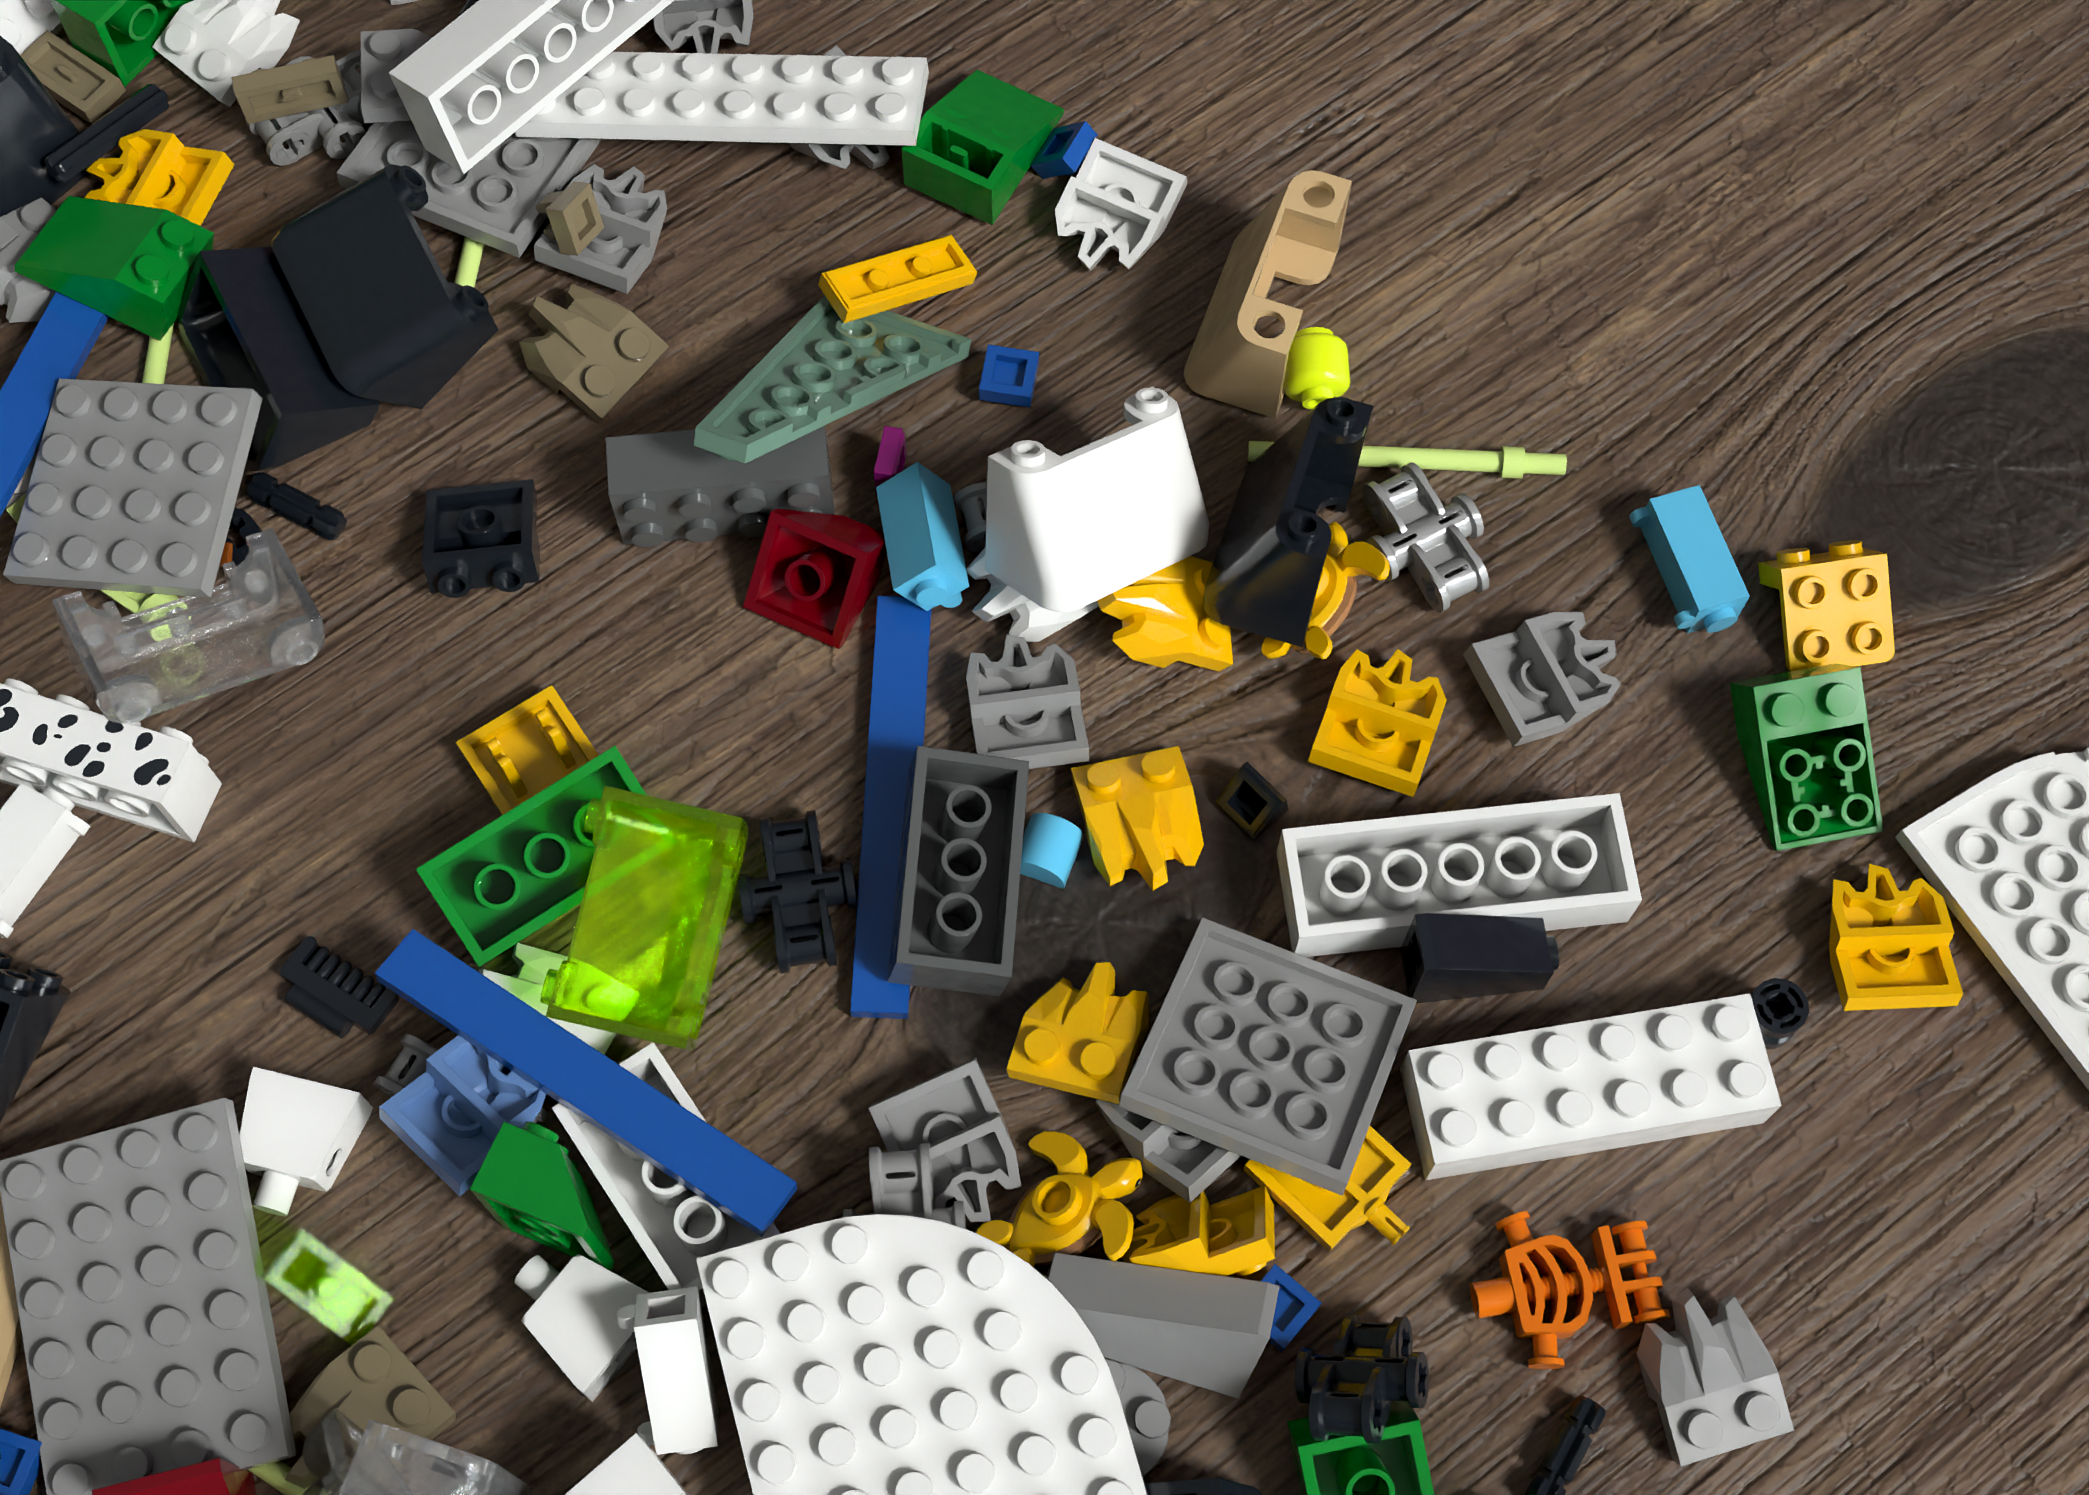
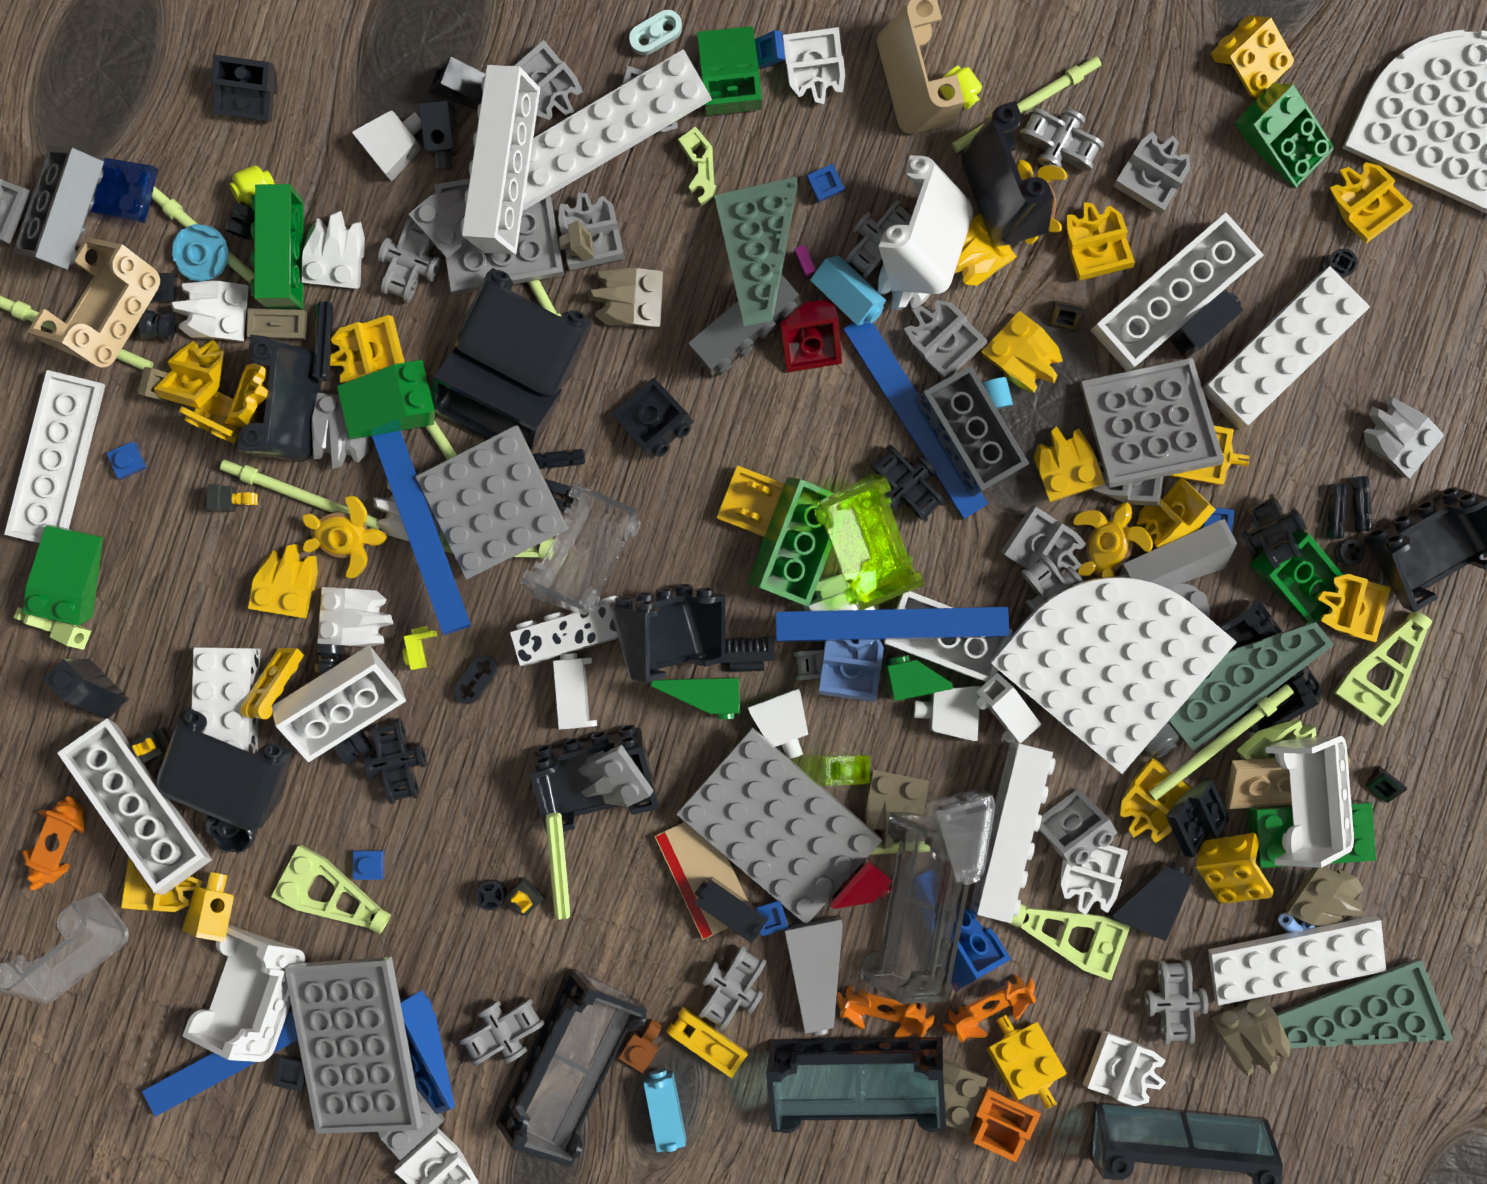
camera: 30 degrees left, 20 degrees up
(222, 1011) = (711, 695): none -> green slope
(223, 846) = (669, 629): none -> black windscreen
(290, 89) = (406, 256): dark tan plate -> none
(850, 203) = (705, 176): none -> yellowish green piece
(897, 278) = (743, 169): yellow tile -> none
(916, 34) = (653, 31): none -> light aqua plate
(1511, 1436) = (1337, 511): none -> black axle
(1525, 1293) = (1317, 450): orange piece -> none
(1692, 560) = (1184, 73): medium azure brick -> none

